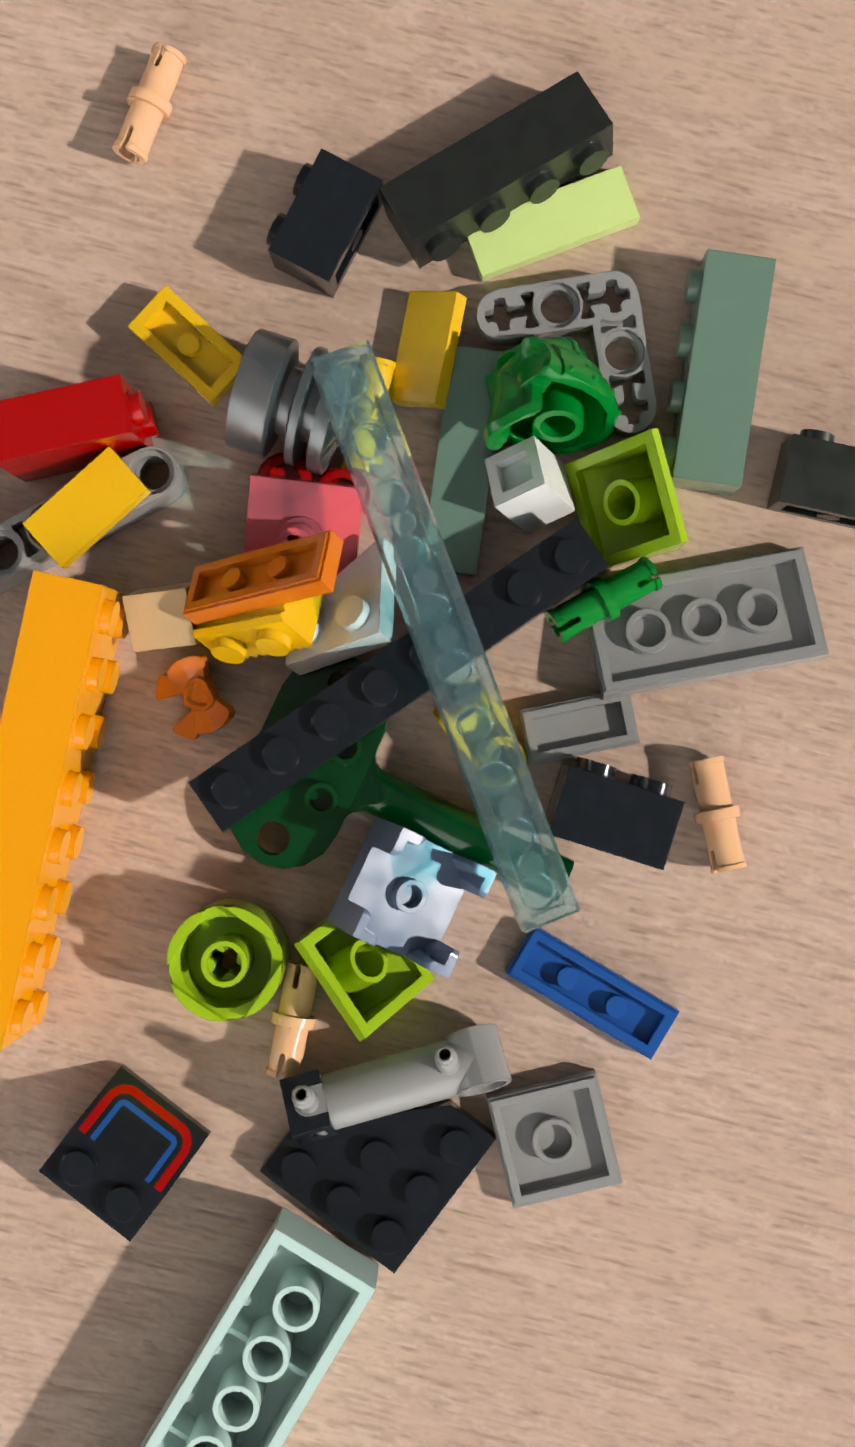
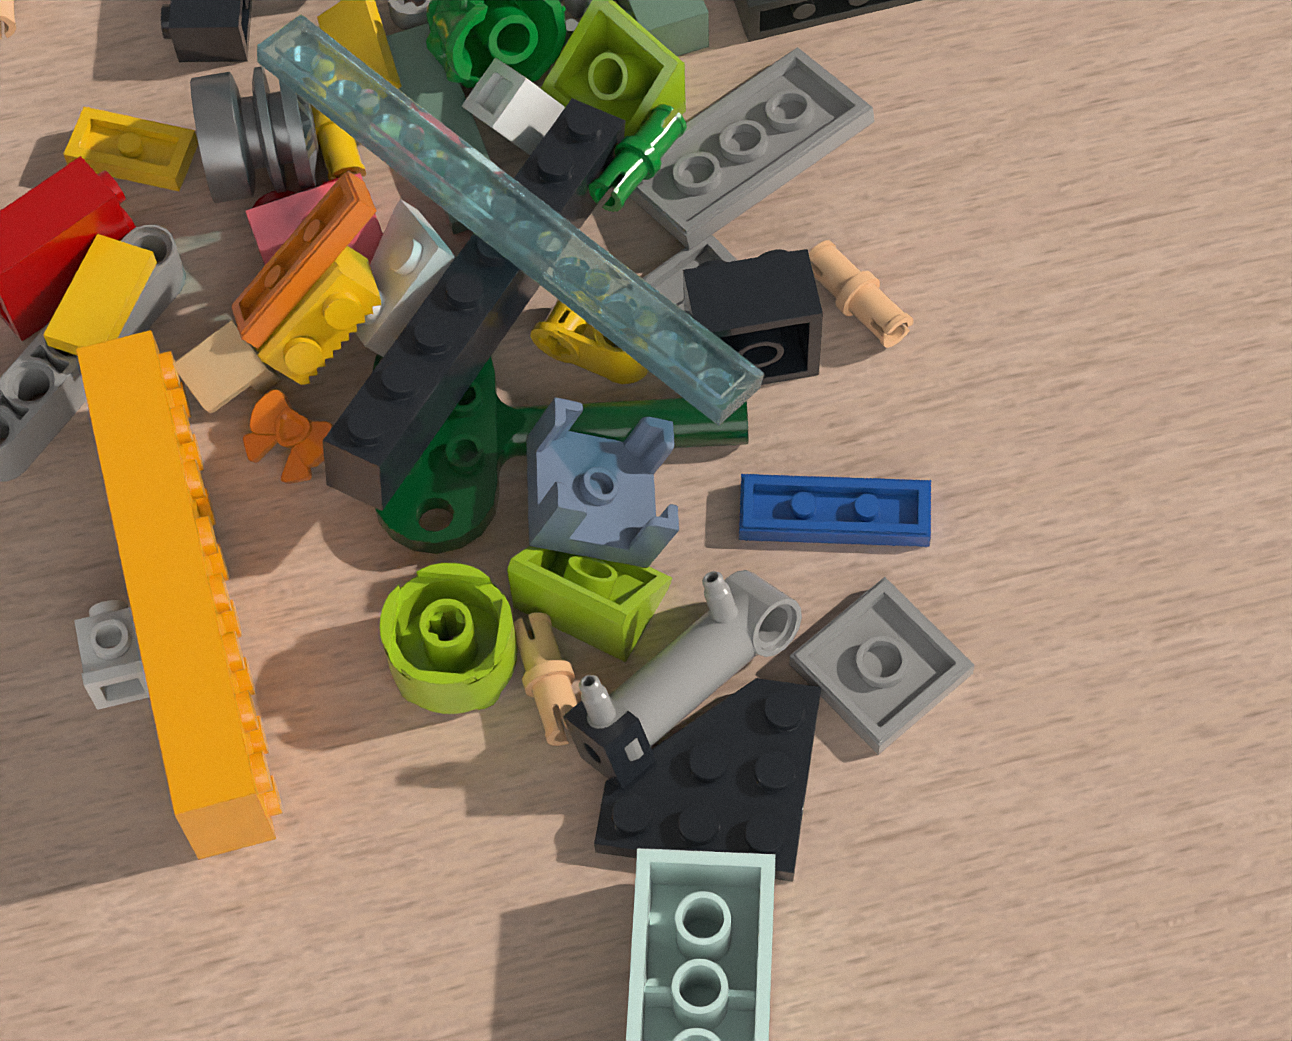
camera: 25 degrees left, 25 degrees down
(125, 1152) = (438, 897): black slope -> none

